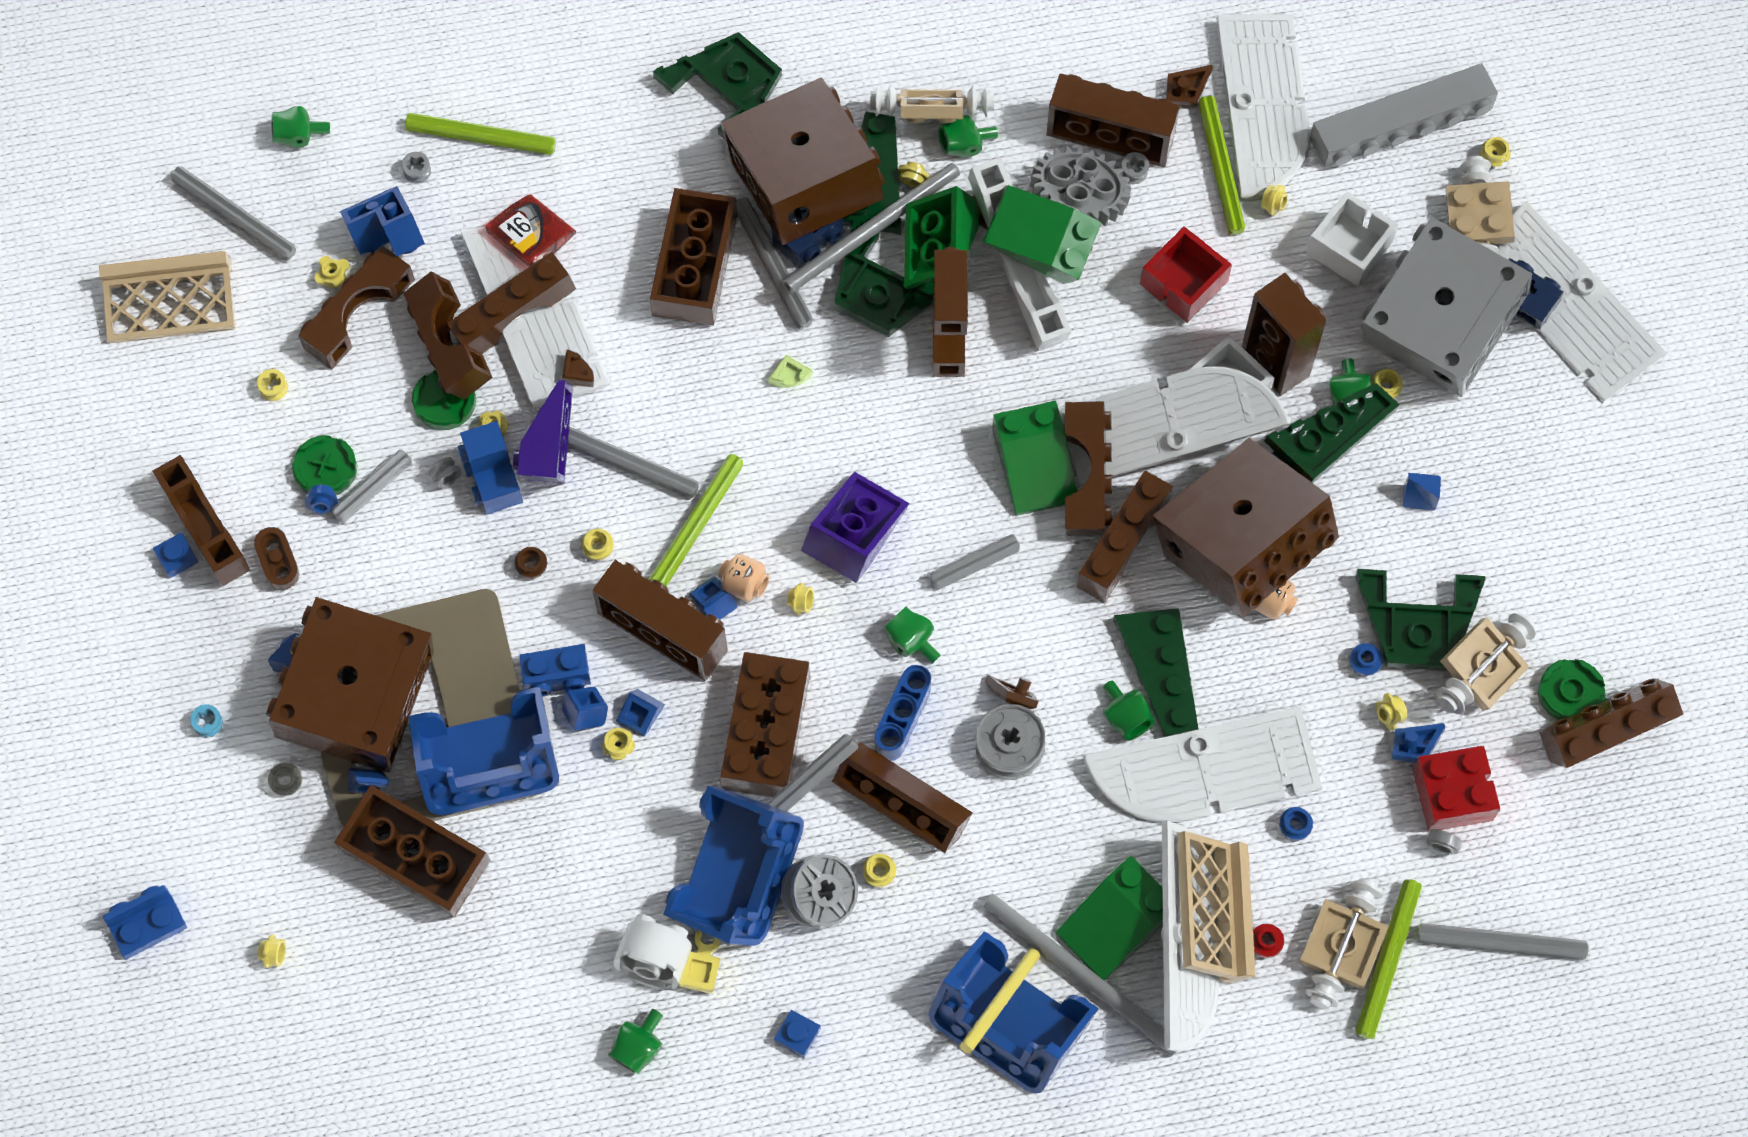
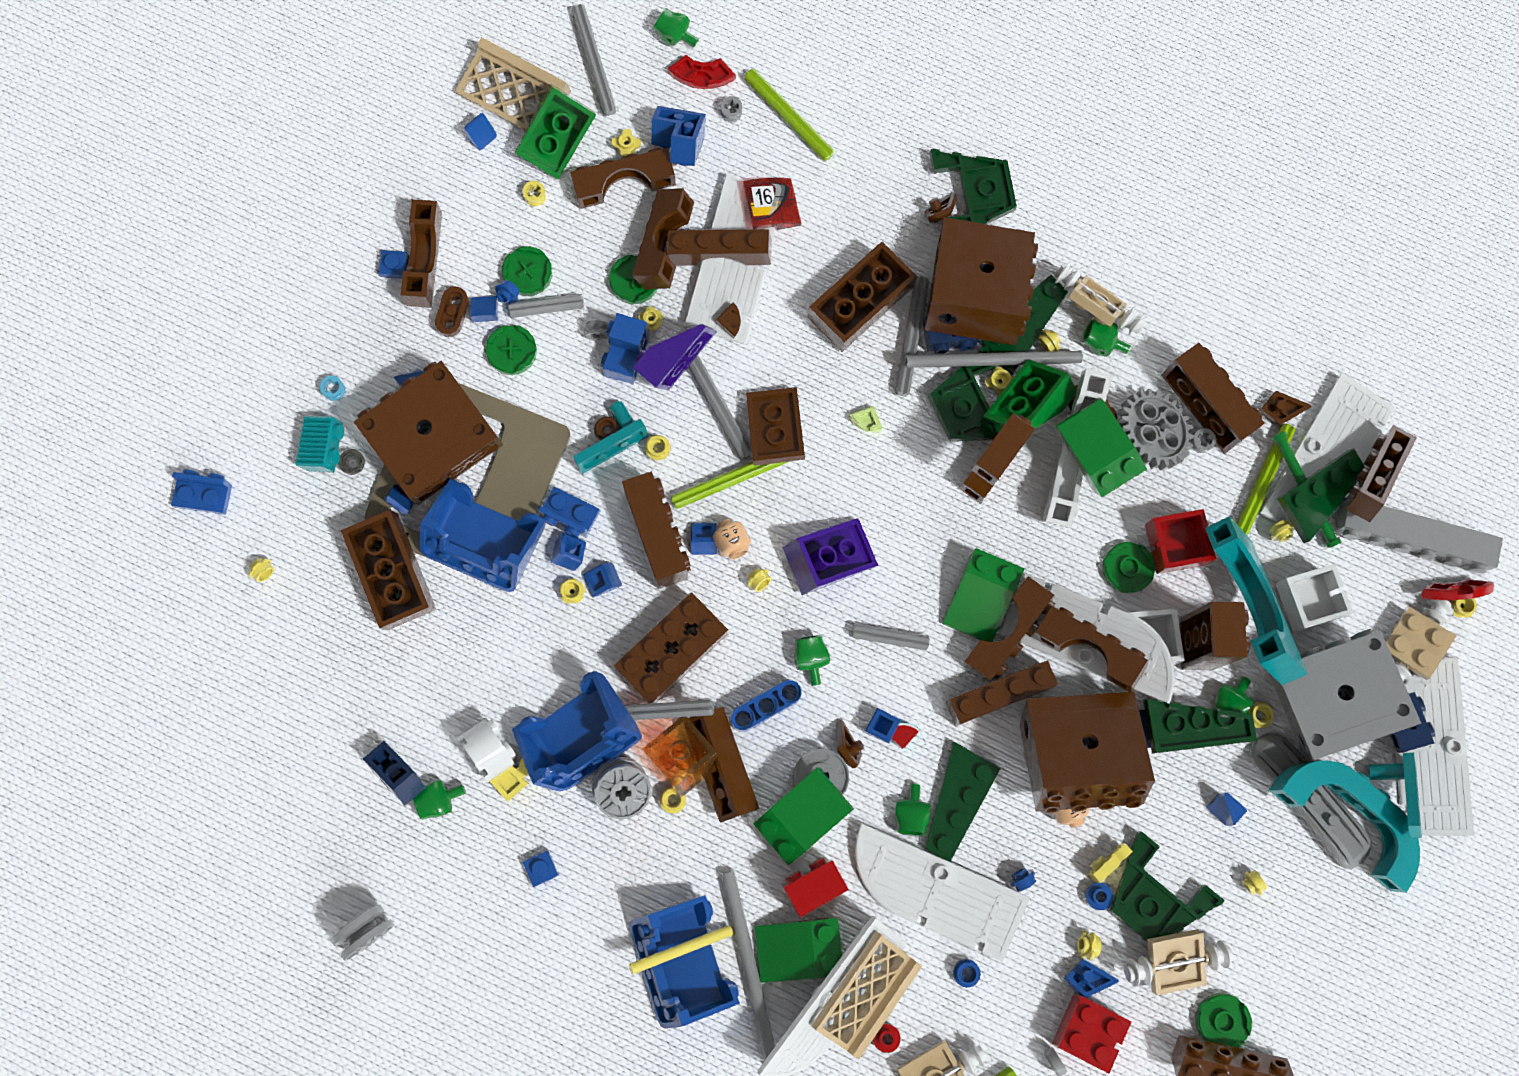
camera: 30 degrees right, 10 degrees up
(167, 362) = (480, 131): none -> blue slope
(239, 781) = (319, 444): none -> teal brick
(250, 306) = (555, 131): none -> green slope
(309, 533) = (484, 309): none -> blue slope
(357, 154) = (701, 74): none -> red tile
(368, 554) = (511, 350): none -> green tile
(559, 550) = (629, 435): none -> teal piece
(575, 1042) = (394, 773): none -> dark blue brick
(703, 439) = (775, 426): none -> reddish brown plate
(707, 122) = (941, 208): none -> reddish brown piece
(856, 816) = (681, 755): none -> clear orange slope
(888, 239) = (998, 374): none -> light yellow plate
(1022, 782) = (803, 816): none -> green slope
(1033, 648) = (882, 726): none -> blue slope
(1057, 645) = (904, 734): none -> red tile
(1085, 844) = (814, 887): none -> red piece
(1137, 430) = (1062, 630): none -> reddish brown arch
(1155, 335) = (1128, 567): none -> green tile
(1267, 145) = (1299, 476): none -> green bar
(1281, 695) = (1023, 879): none -> blue plate
(1284, 138) = (1318, 496): none -> dark green wing
(1323, 80) = (1381, 473): none -> reddish brown brick
(1330, 287) = (1274, 643): none -> teal arch
(1348, 627) = (1104, 866): none -> light yellow plate
(1478, 140) = (1458, 590): none -> red tile
(1494, 426) = (1323, 810): none -> light grey piece
(1500, 541) = (1254, 883): none -> light yellow plate
(1553, 389) = (1399, 852): none -> teal arch
(1562, 337) = (1401, 771): none -> teal piece

